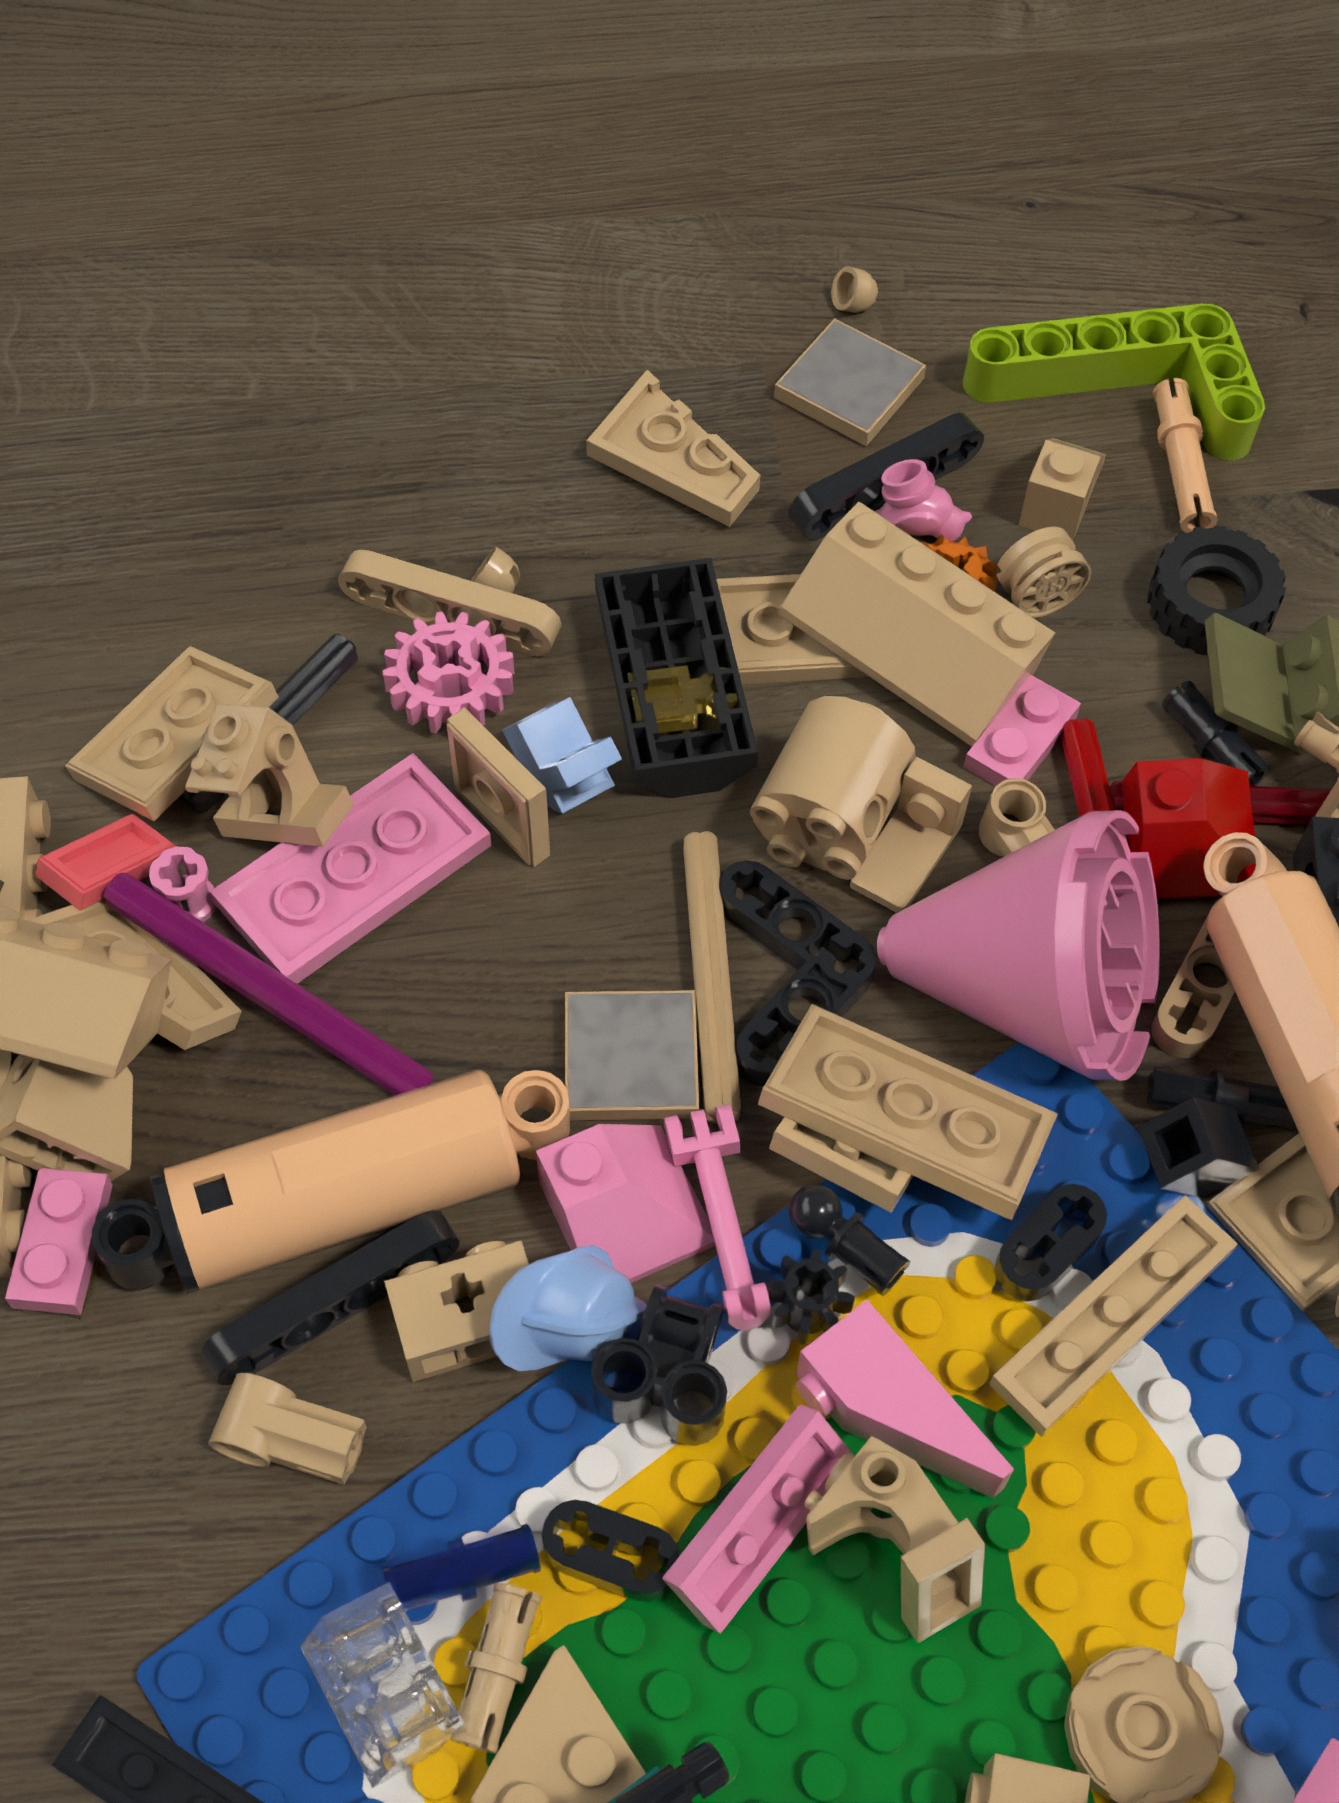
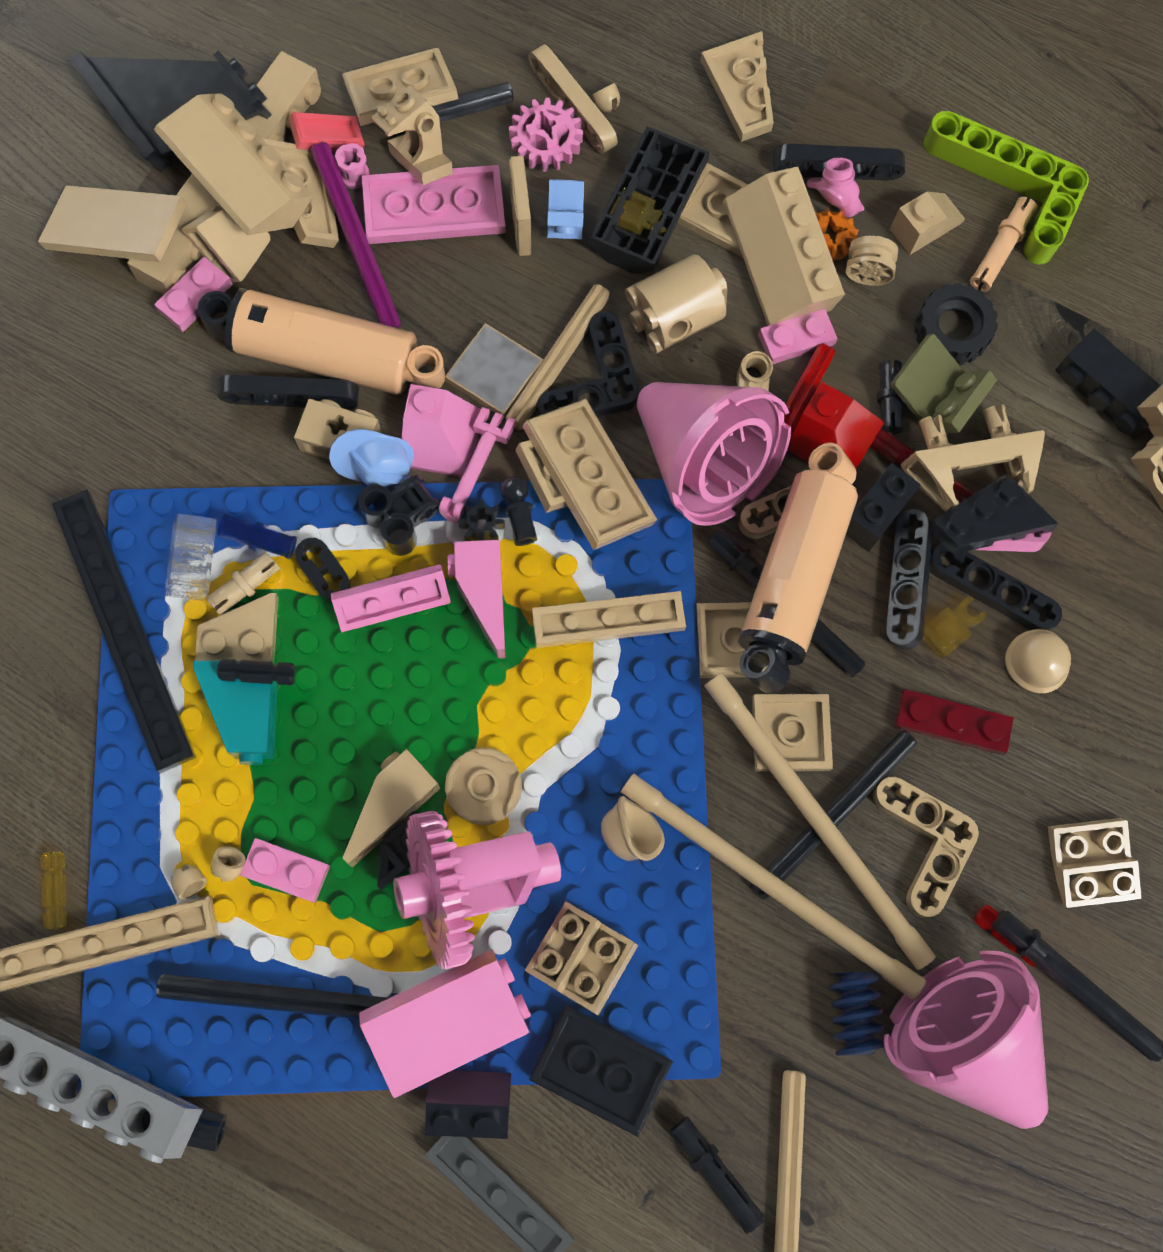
camera: 30 degrees right, 15 degrees up
(269, 1424) = (227, 430): tan piece -> none
(850, 382) = (865, 99): flat silver tile -> none
(853, 290) = (907, 49): tan hinge -> none
(915, 837) = (698, 354): tan bracket -> none
(940, 1555) = (440, 664): tan tile -> none
(1039, 1231) = (606, 564): black beam -> none
(1198, 1147) = (707, 576): black brick -> none

